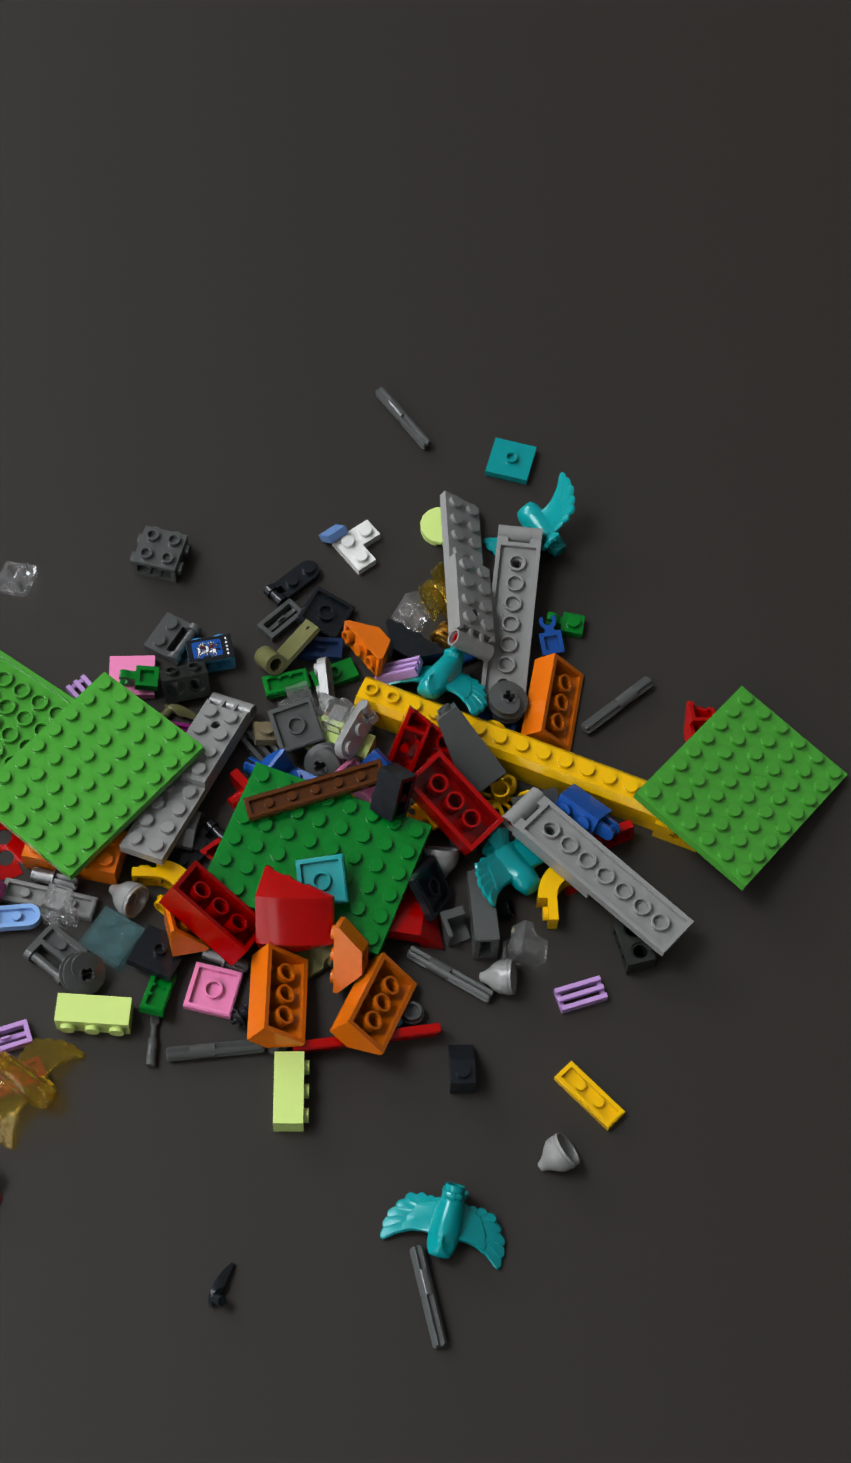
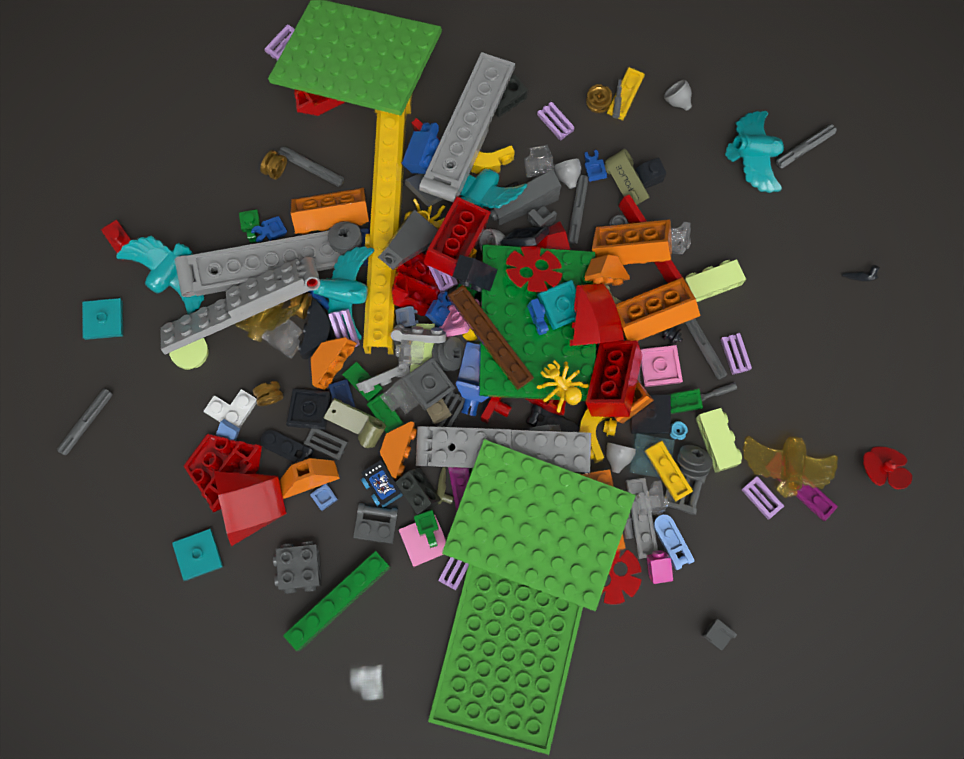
camera: 110 degrees left, 15 degrees up
(84, 939) = (668, 471): none -> yellow tile
(109, 577) = (336, 601): none -> green brick
(127, 971) = (683, 430): none -> medium azure plate
(191, 1083) = (724, 340): none -> lavender tile
(218, 475) = (197, 554): none -> teal plate
(223, 847) = (564, 387): none -> yellow animal
(224, 601) = (323, 497): none -> medium blue tile
(240, 679) = (396, 448): none -> orange slope
(248, 524) = (248, 502): none -> wedge
(250, 591) = (307, 476): none -> orange slope
(293, 515) = (224, 456): none -> red wedge
(318, 847) = (537, 314): none -> blue plate
(358, 579) = (268, 393): none -> pearl gold wheel
(360, 1071) = (680, 238): none -> clear brick
(361, 875) = (536, 282): none -> red piece
(384, 730) = (406, 317): none -> sand blue tile
(485, 1036) = (625, 176): none -> olive door
(495, 1013) = (594, 168): none -> blue plate
(580, 1075) = (617, 101): none -> dark grey piece
(592, 1056) = (599, 98): none -> pearl gold wheel
(597, 498) = (116, 235): none -> red tile
(630, 663) = (273, 164): none -> pearl gold wheel
(812, 737) = (278, 51): none -> lavender tile

